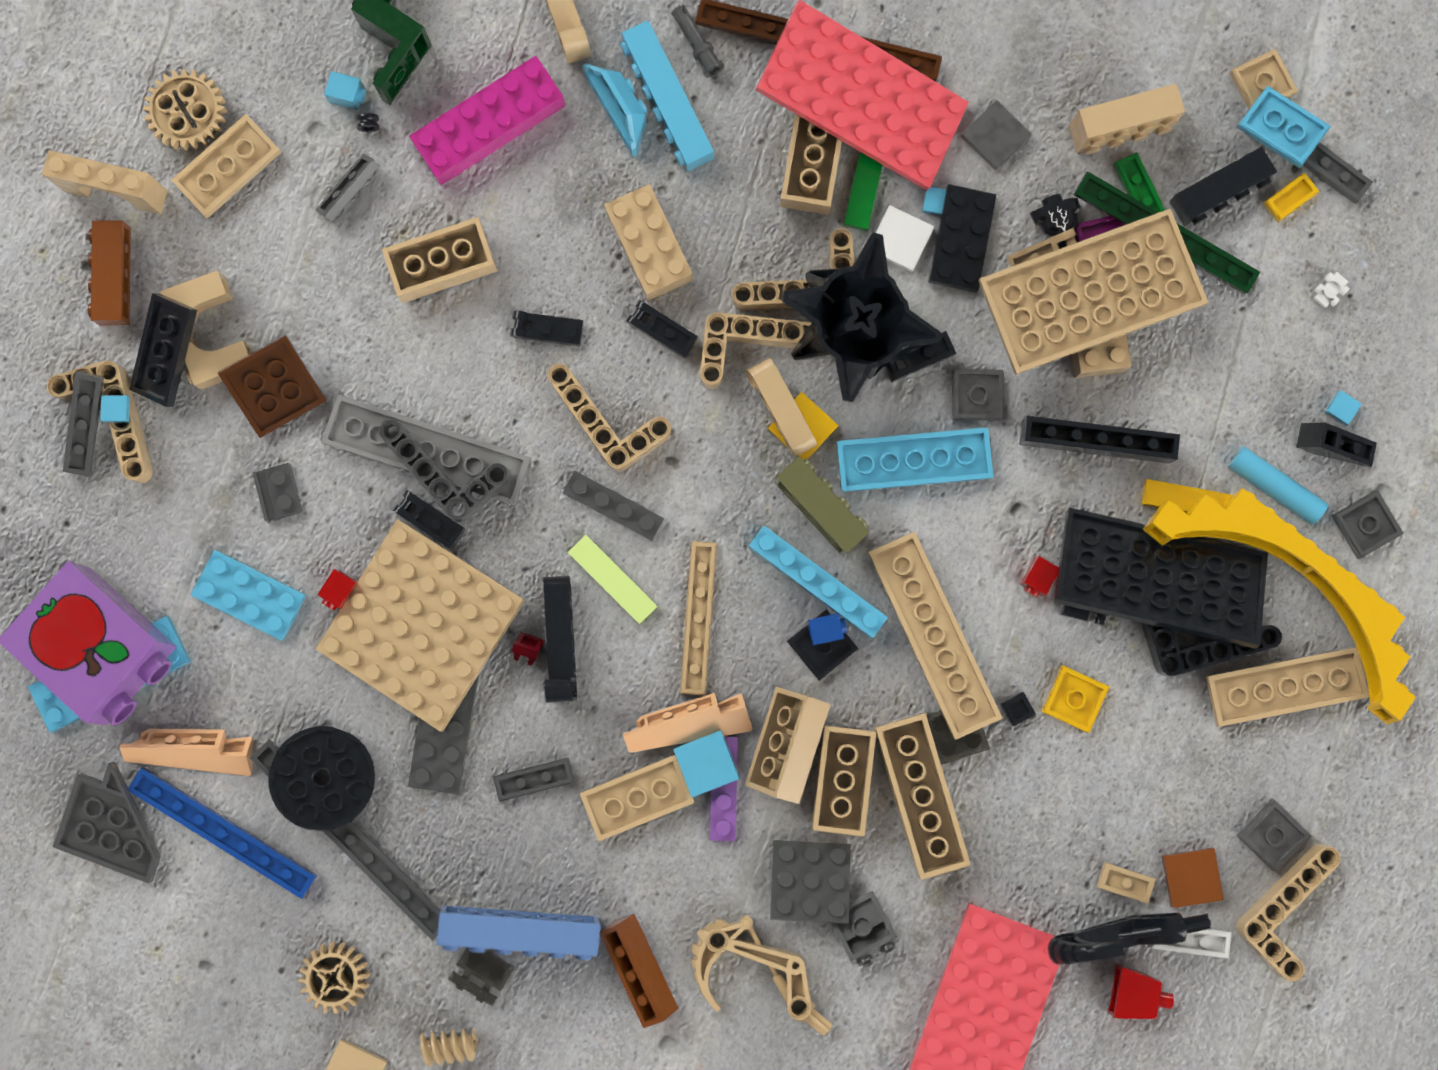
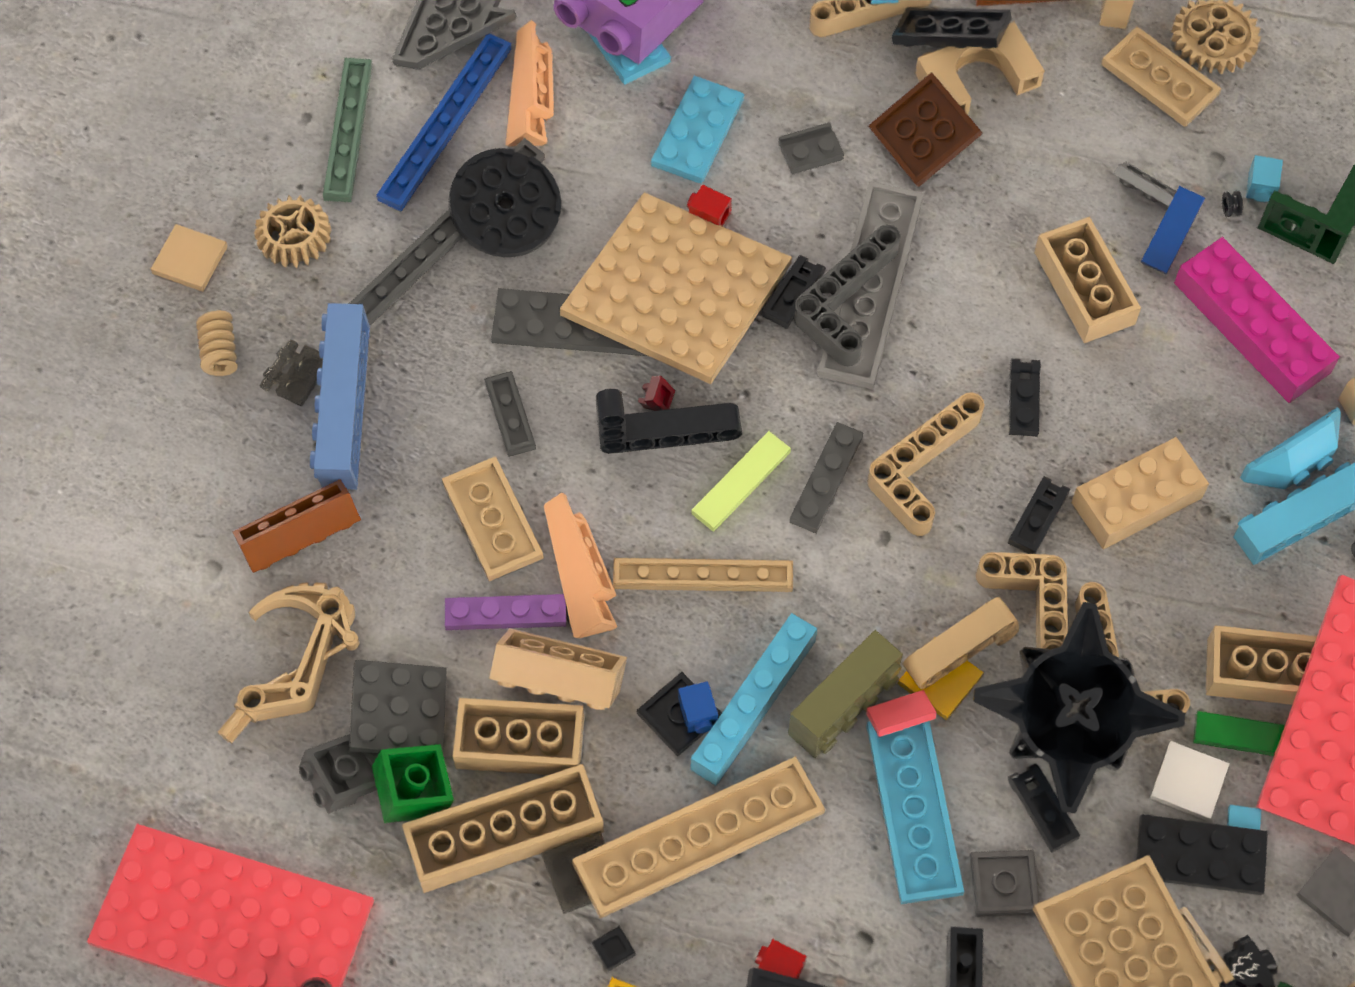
camera: 90 degrees right, 20 degrees down
(221, 925) = (347, 130): none -> sand green tile
(394, 178) = (1173, 230): none -> blue tile
(706, 763) = (533, 586): medium azure tile -> none
(838, 462) = (901, 713): none -> coral tile
(881, 870) = (412, 782): none -> green brick

